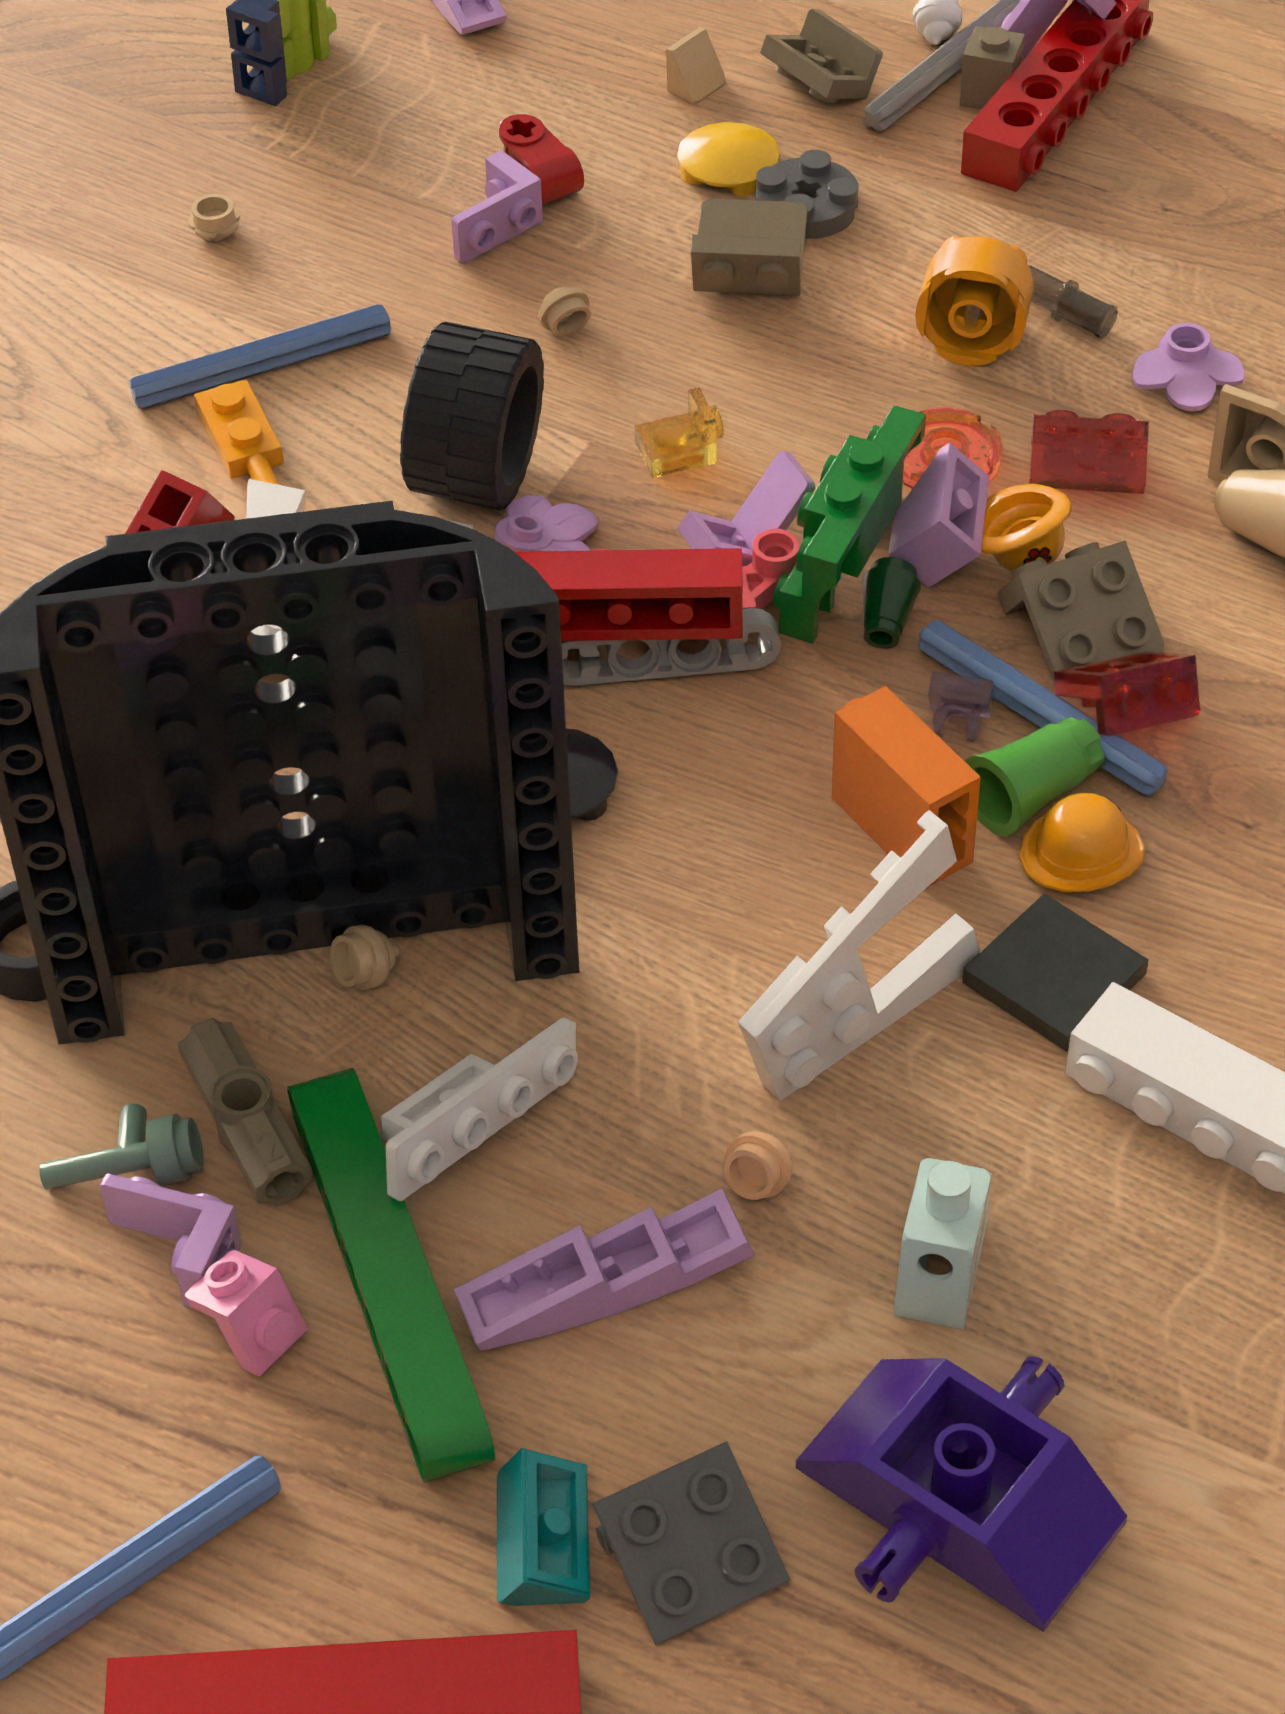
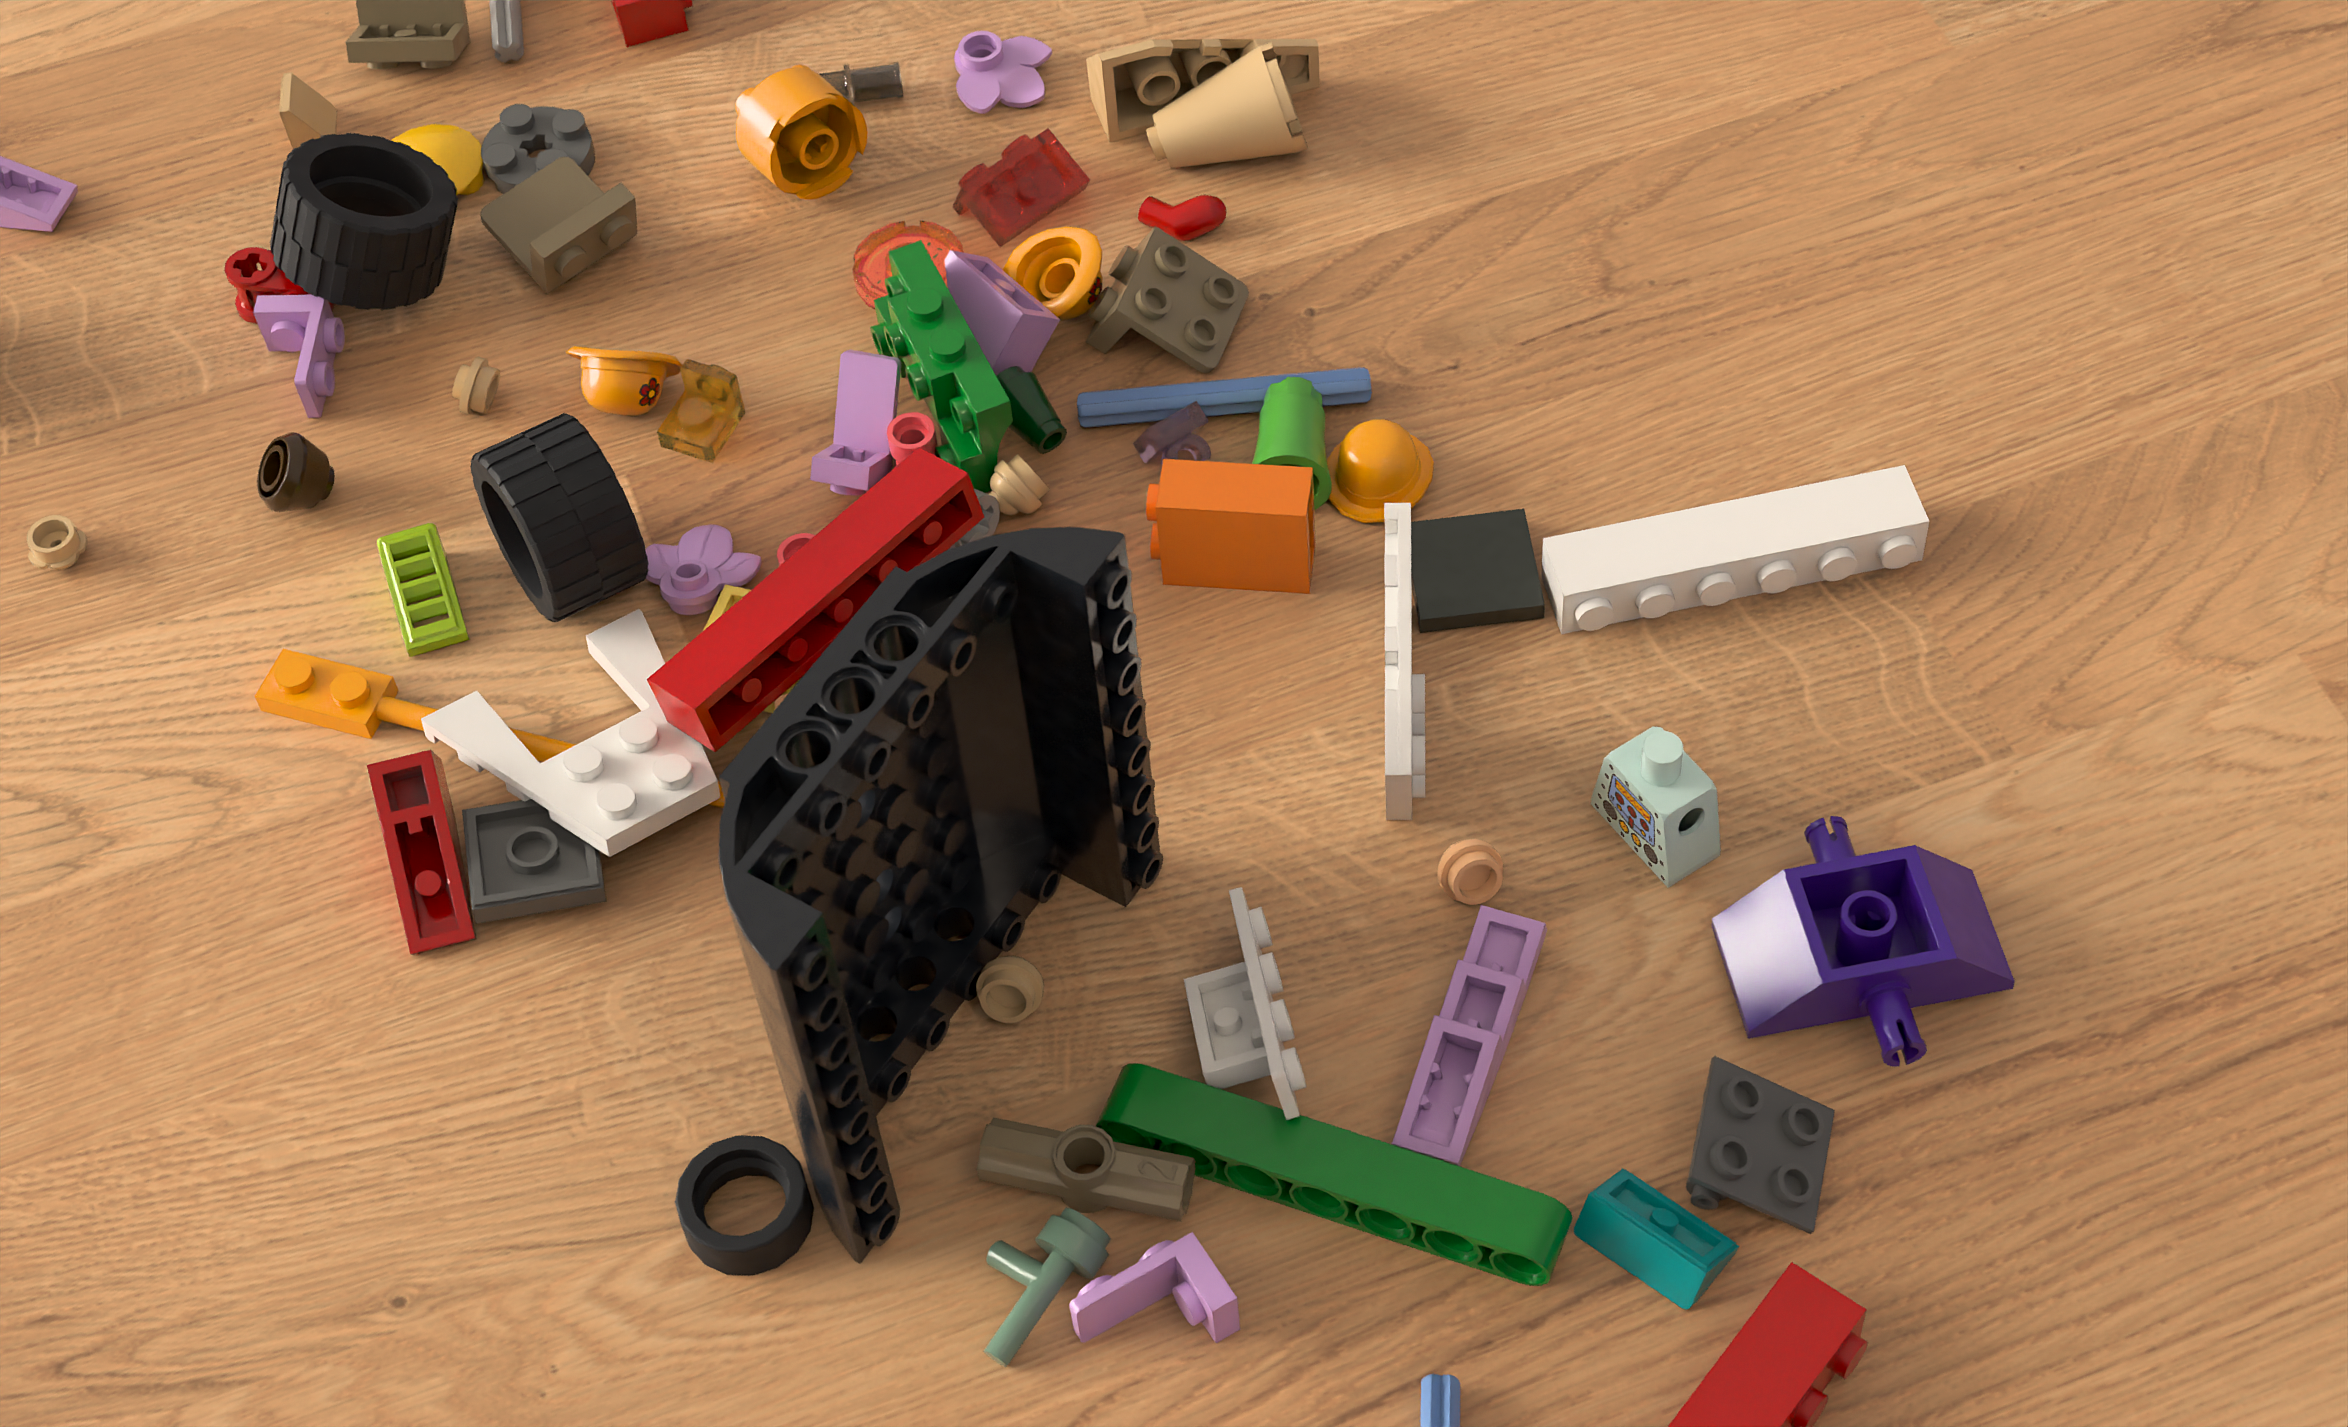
camera: 45 degrees left, 5 degrees up
(249, 1308) = (1287, 1284): bright pink bracket -> none
(259, 356) = (261, 624): medium blue axle -> none
(377, 379) = (415, 554): none -> lime slope
(387, 279) = (294, 474): none -> dark brown cone
(621, 107) = (363, 221): none -> black tyre
(649, 372) = (623, 380): none -> light orange hat
(812, 646) = (1017, 487): none -> tan plate
(1134, 690) = (1278, 323): clear red bracket -> none
(1182, 566) = (1186, 219): none -> red arm

